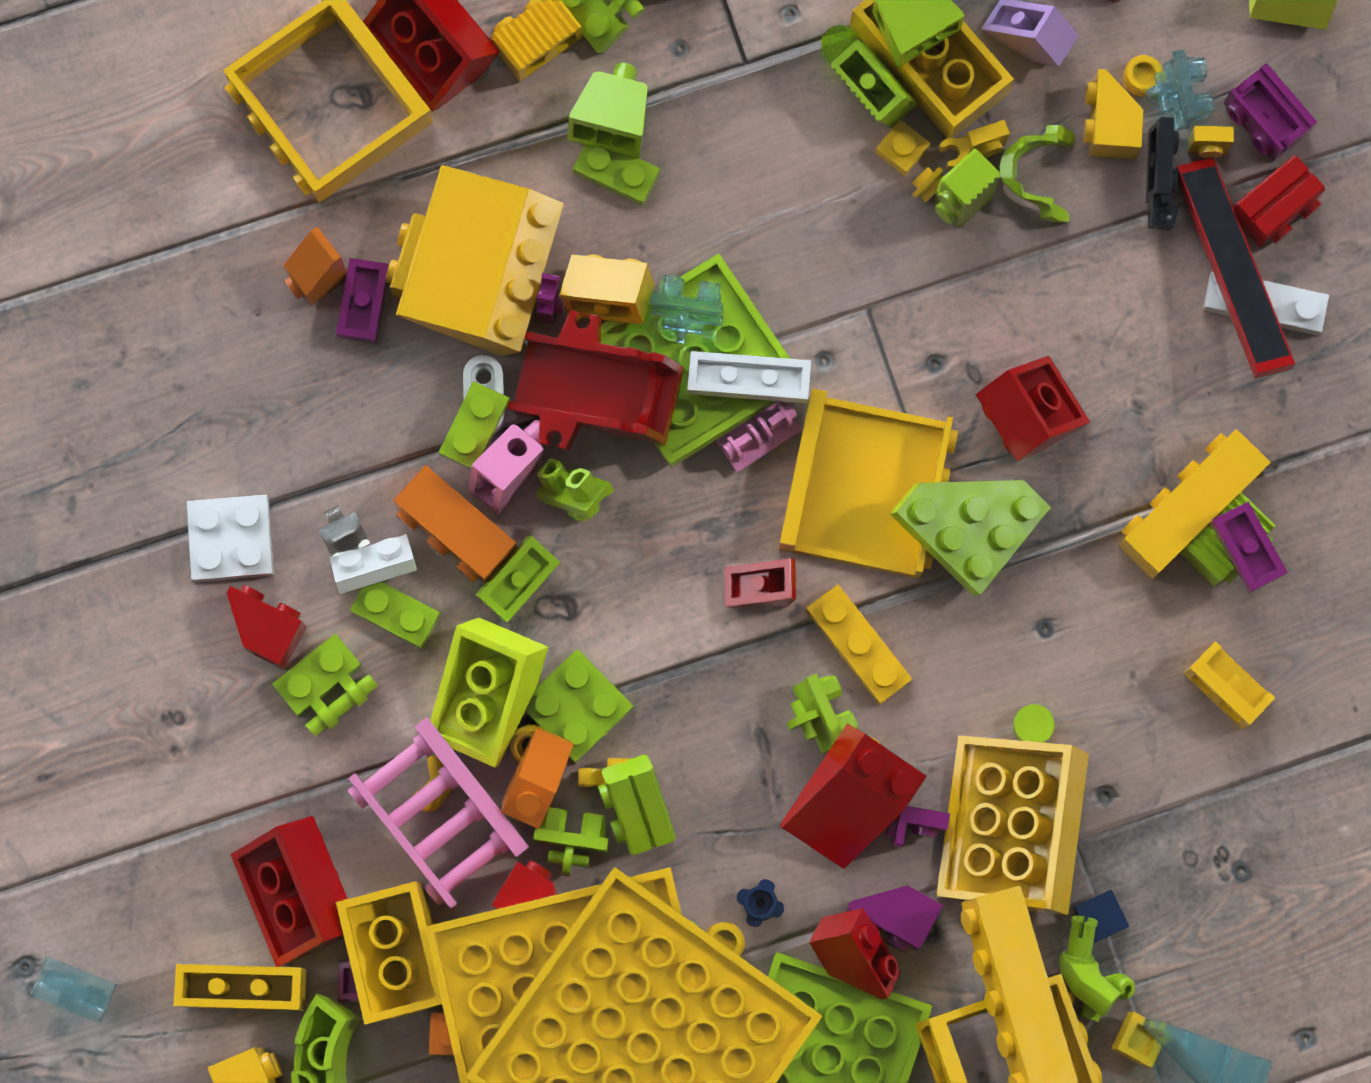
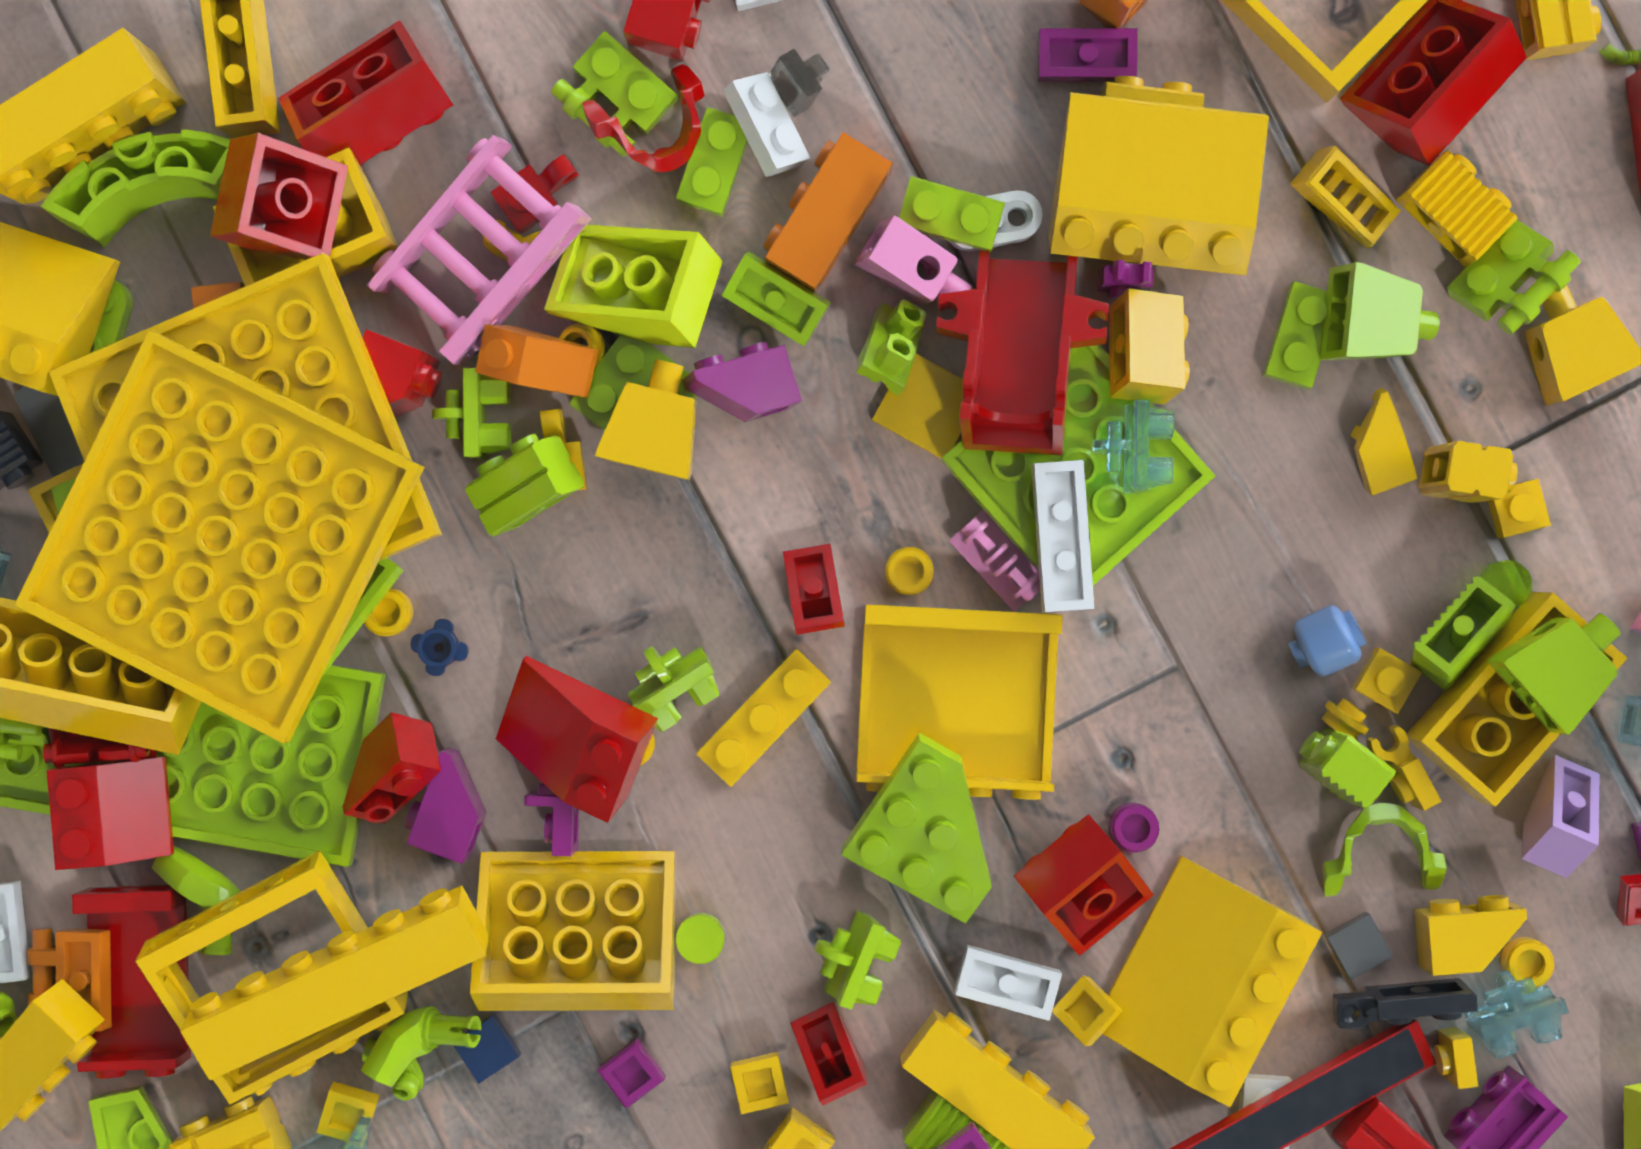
camera: 85 degrees right, 10 degrees up
(371, 962) = (278, 198): none -> red slope
(385, 651) = (664, 158): none -> red helmet
(405, 781) = (553, 178): none -> red plate
(493, 136) = (1344, 170): none -> yellow slope
(586, 610) = (747, 386): none -> magenta slope
(607, 689) = (653, 425): none -> yellow torso
(631, 471) = (925, 409): none -> yellow piece
(716, 121) = (1382, 447): none -> yellow slope
(747, 60) = (1467, 472): none -> yellow brick
(756, 508) = (909, 571): none -> yellow tile
(781, 26) = (1520, 510): none -> yellow plate
(864, 187) = (1327, 640): none -> medium blue head
(991, 361) = (1134, 827): none -> magenta tile
(1066, 601) = (850, 958): none -> lime hips
(1103, 481) = (1008, 982): none -> white plate
(1111, 202) = (1358, 945): none -> dark grey tile
(1121, 324) = (1208, 980): none -> yellow slope
(1134, 421) = (1086, 1010): none -> yellow plate
(1137, 799) = (631, 1073): none -> magenta tile
(1141, 632) = (829, 1053): none -> red slope
(1158, 693) = (759, 1082): none -> yellow plate

